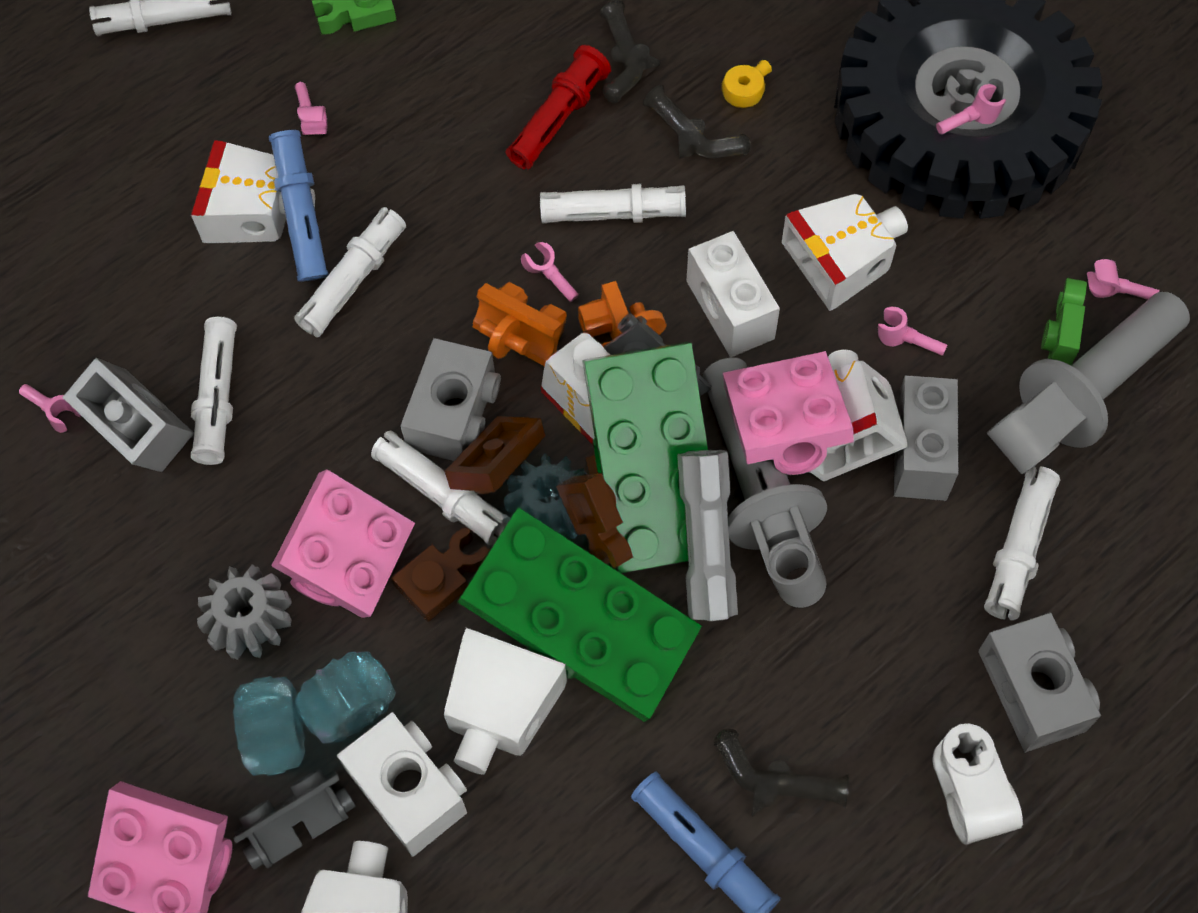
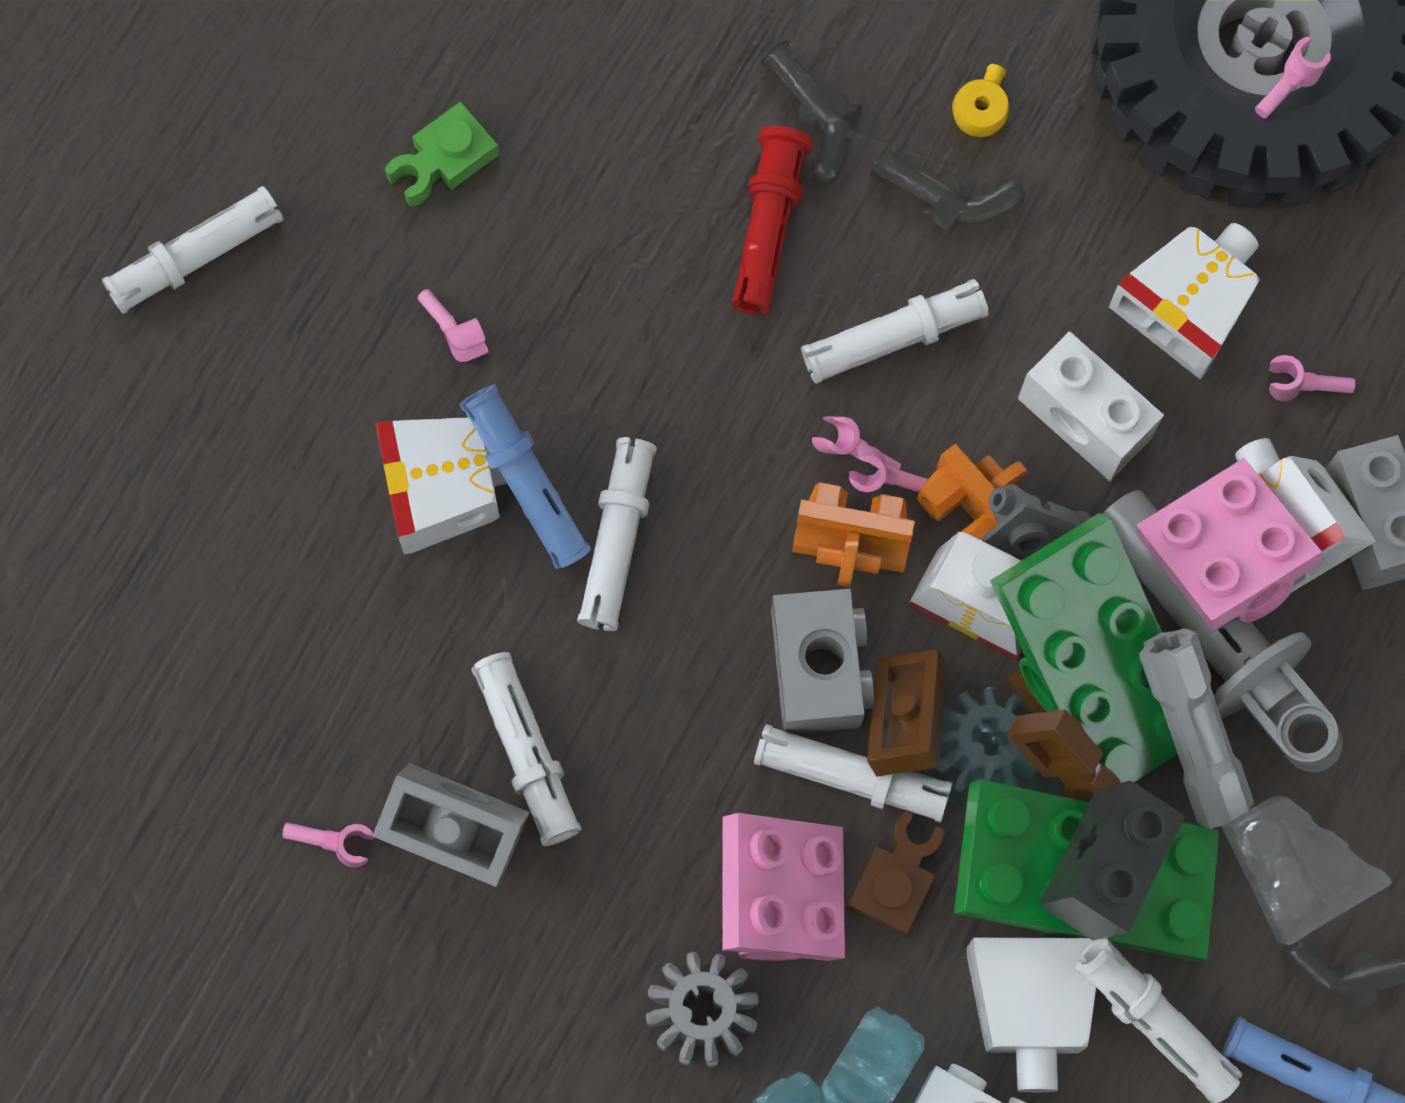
camera: 25 degrees left, 10 degrees up
(558, 291) = (885, 474): none -> bright pink hand
(589, 597) = (1112, 860): none -> pearl dark grey brick
(590, 756) = (1139, 1001): none -> white pin
(751, 675) = (1298, 869): none -> clear wing

